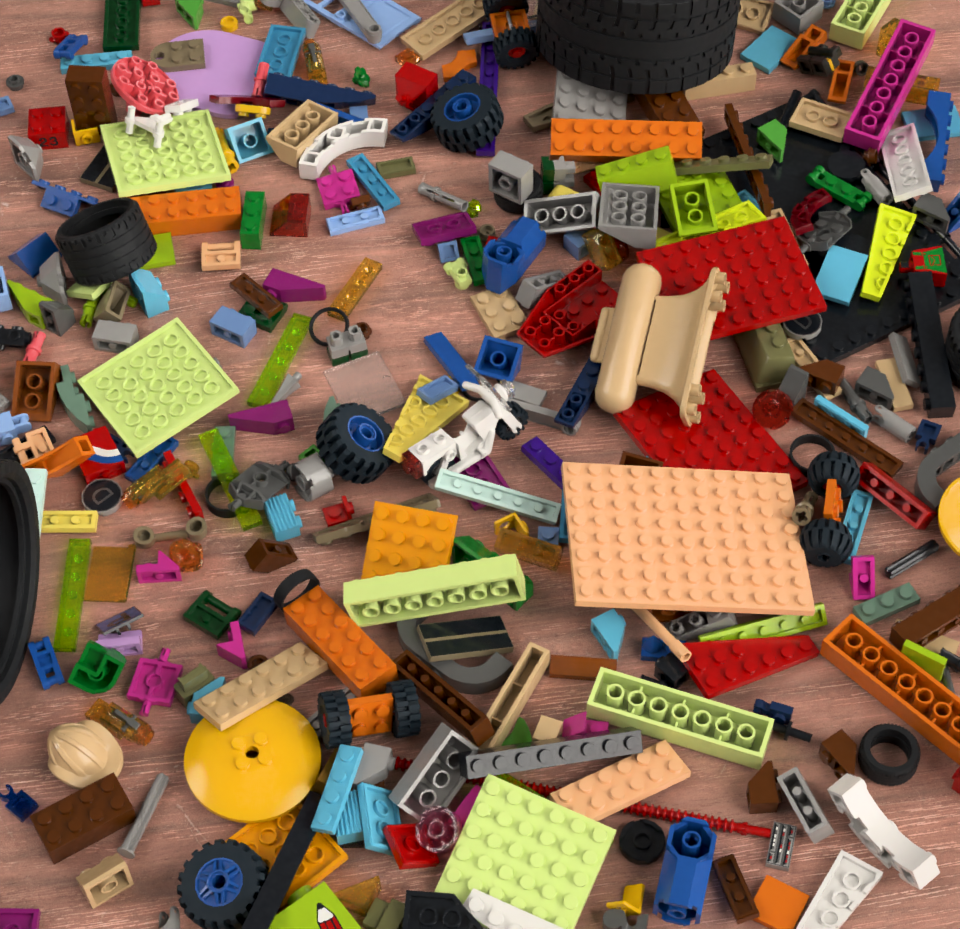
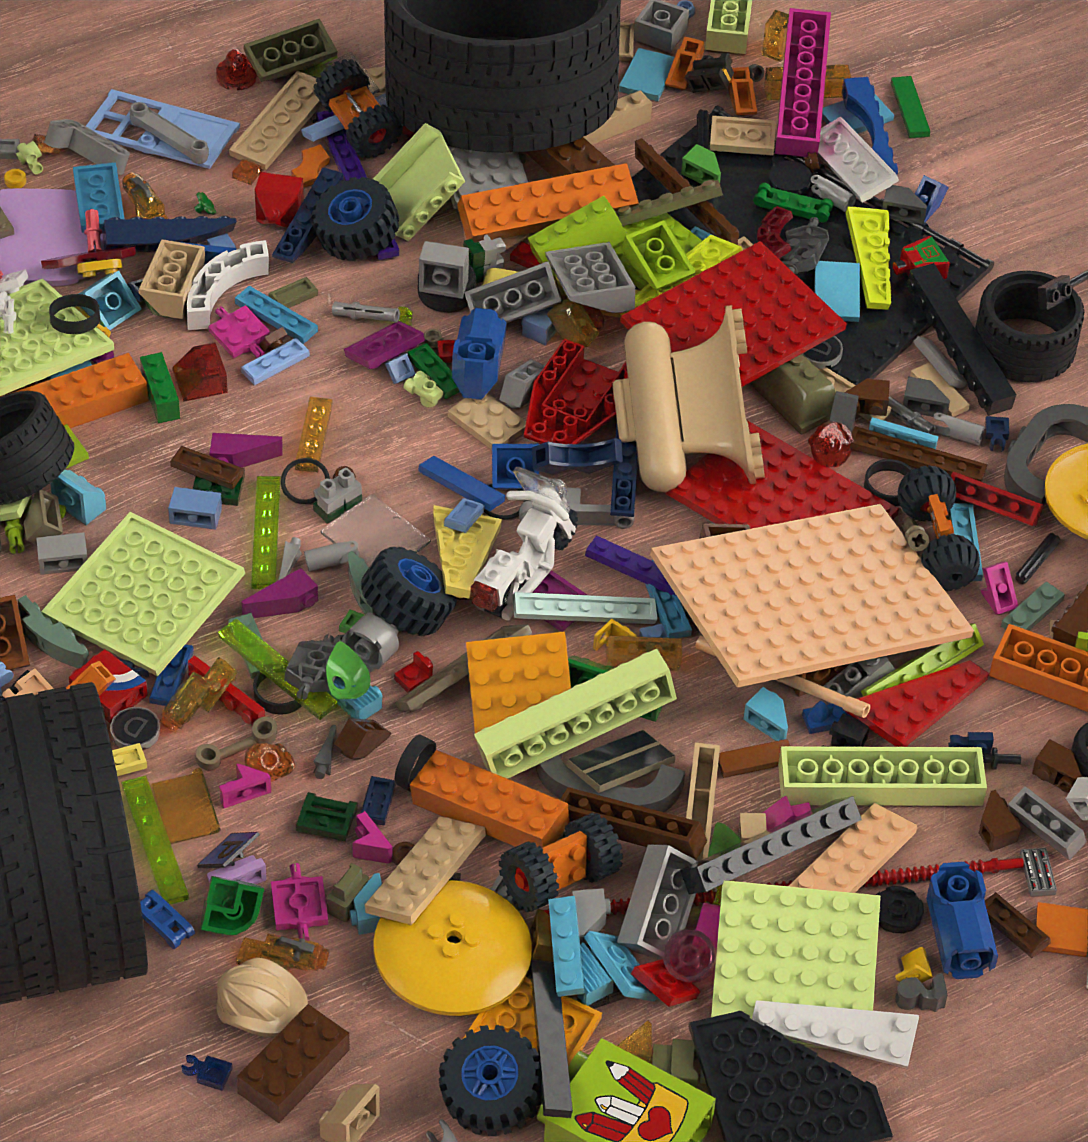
camera: 25 degrees left, 5 degrees down
(143, 816) = (357, 1040): light grey axle -> none
(209, 133) = (75, 327): none -> black tyre
(221, 256) = (140, 436): light nougat plate -> none
(233, 565) = (324, 757): none -> dark grey piece
(281, 497) = (351, 669): none -> bright green piece
(317, 394) = (329, 555): none -> light grey piece
(530, 96) = (420, 179): none -> yellowish green panel
(551, 365) = (585, 458): none -> dark blue arch

